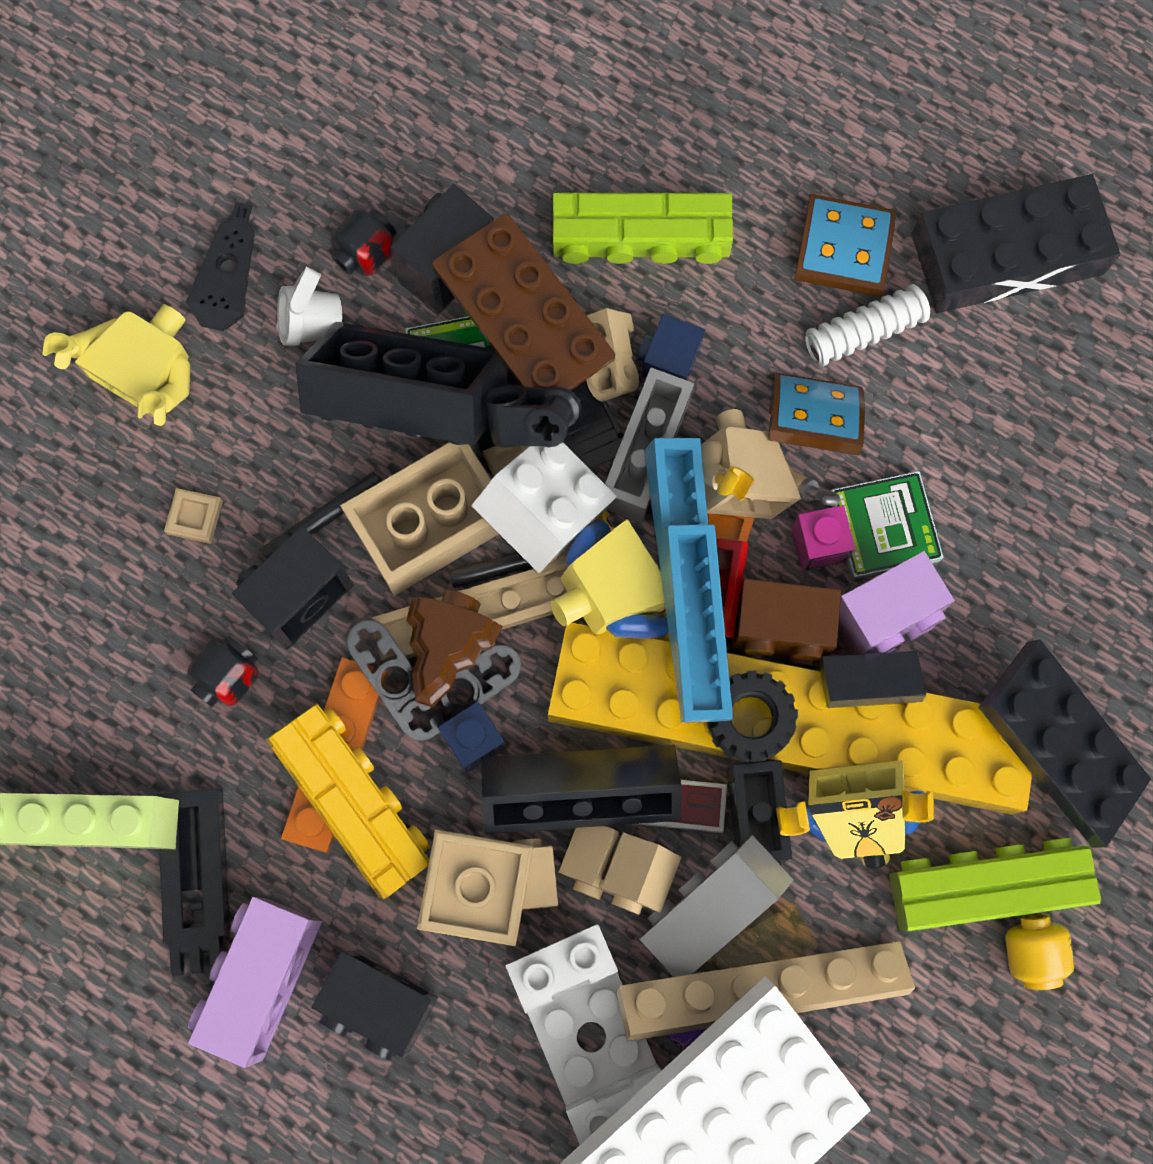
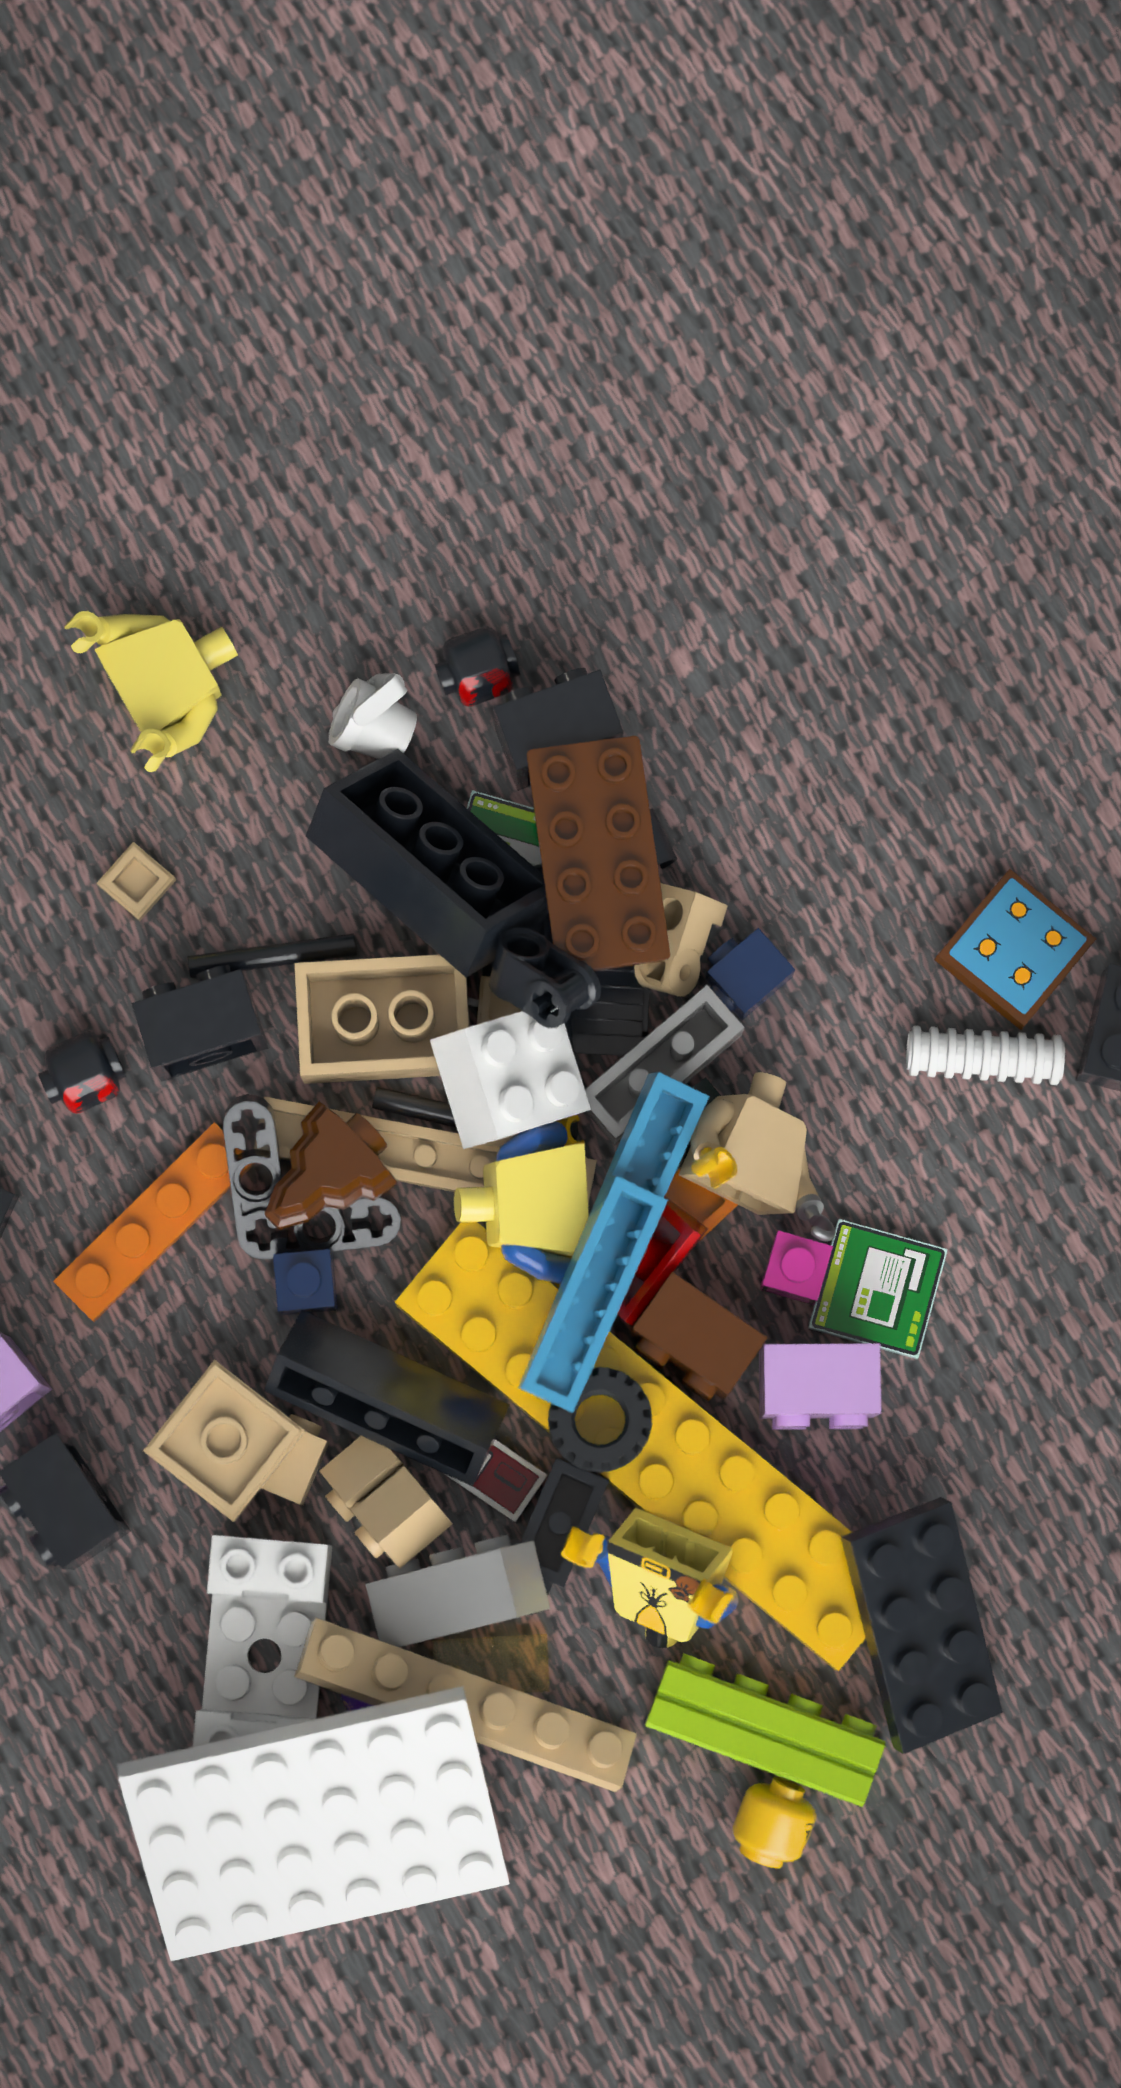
camera: 30 degrees right, 5 degrees up
(220, 285) = (299, 634): black piece -> none
(349, 800) = (143, 1280): yellow brick -> none
(642, 226) = (795, 808): lime brick -> none
(817, 414) = (868, 1126): slope -> none
(872, 679) = (750, 1448): black tile -> none

